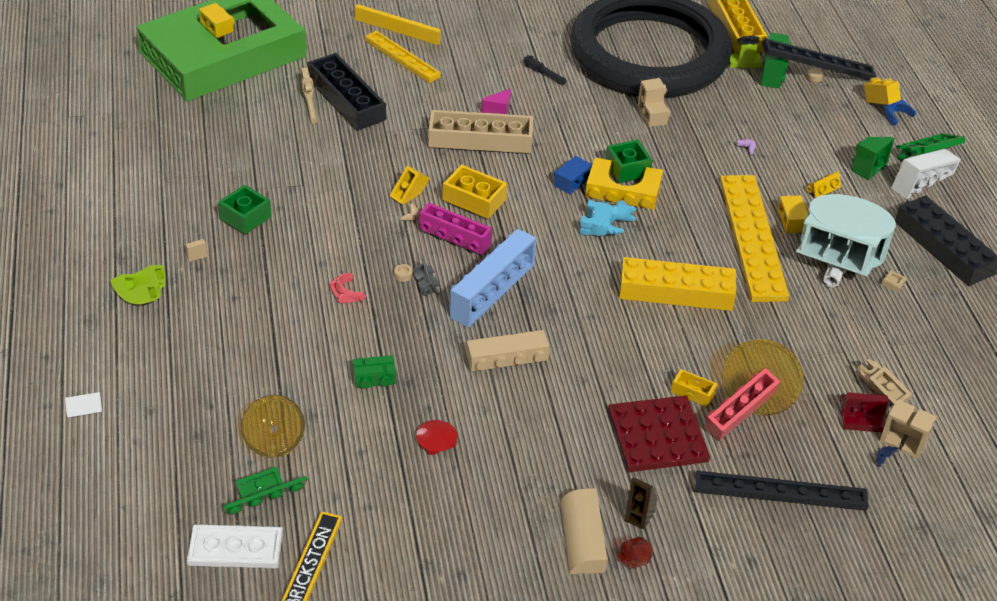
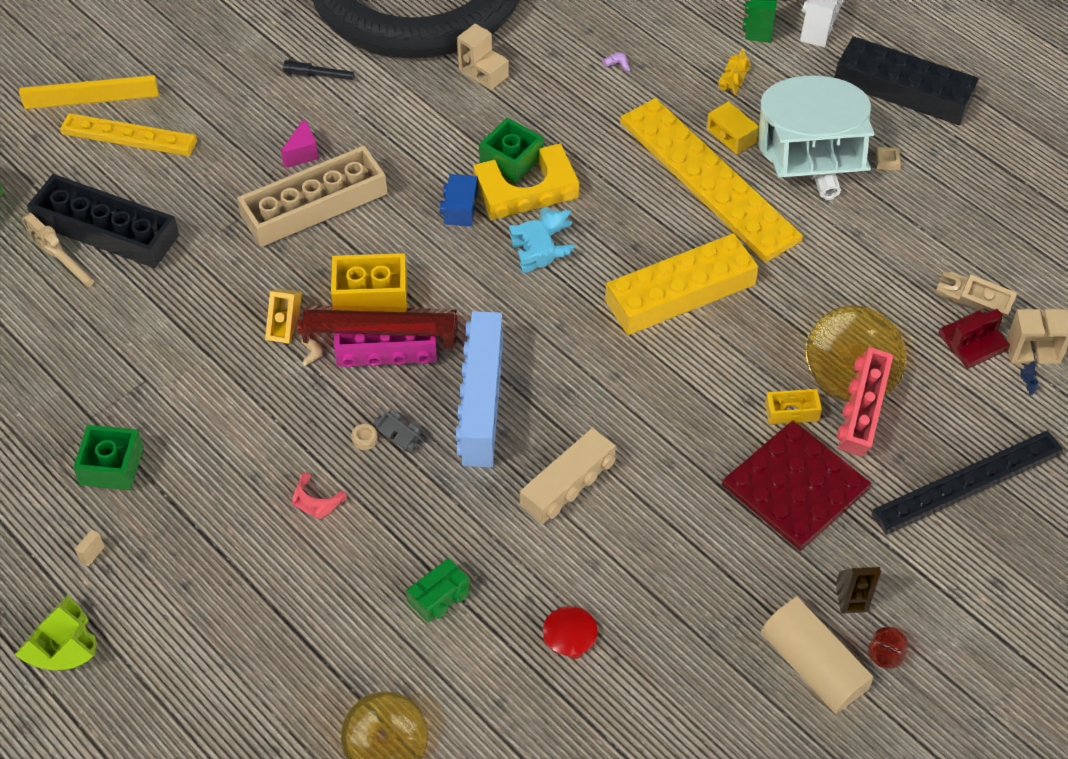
camera: 30 degrees left, 10 degrees up
(424, 194) = (379, 322): none -> clear red panel

